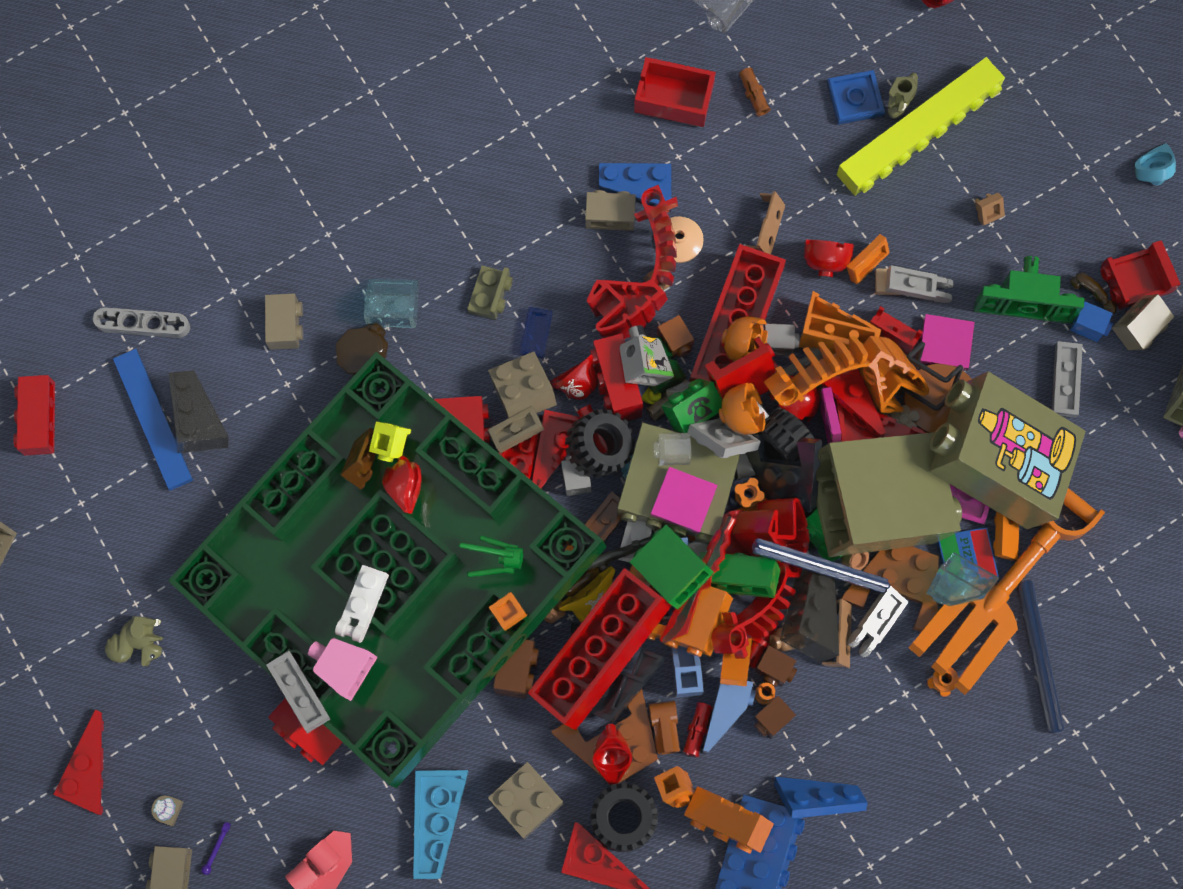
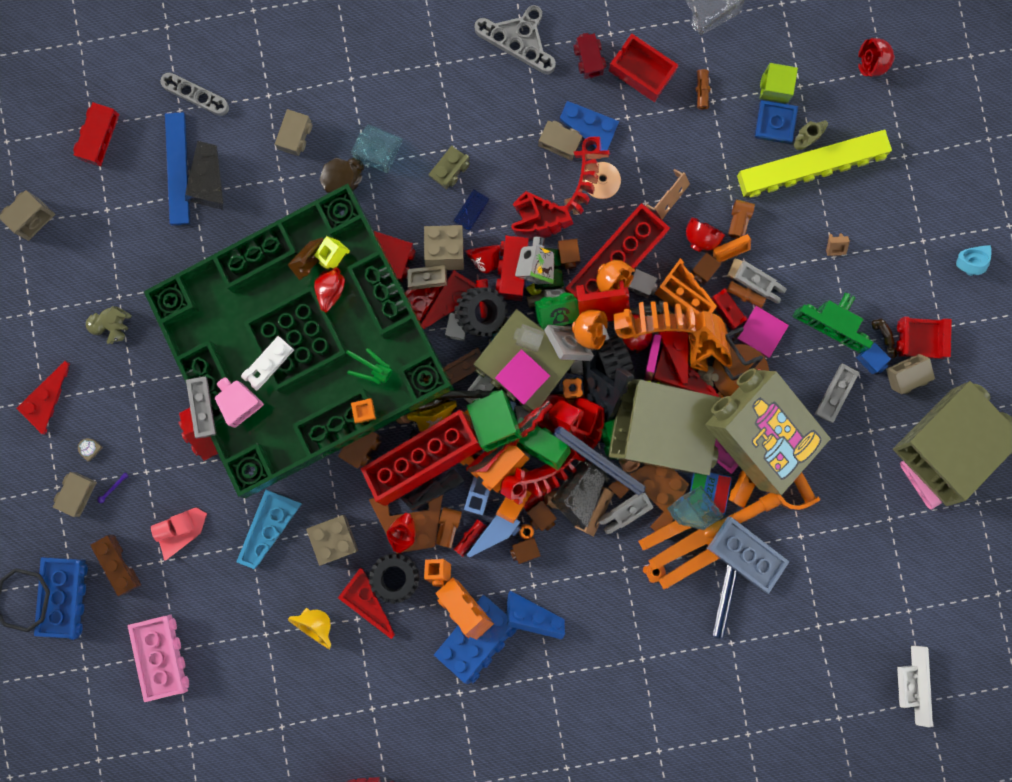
camera: 20 degrees right, 10 degrees up
(524, 115) = (511, 34): none -> light grey beam
(606, 103) = (588, 50): none -> dark red brick
(840, 51) = (778, 83): none -> lime head
(847, 292) = (705, 269): none -> reddish brown brick
(862, 215) = (741, 213): none -> dark orange piece
(908, 305) = (746, 294): none -> dark orange pin
(1048, 612) = (748, 555): none -> sand blue plate

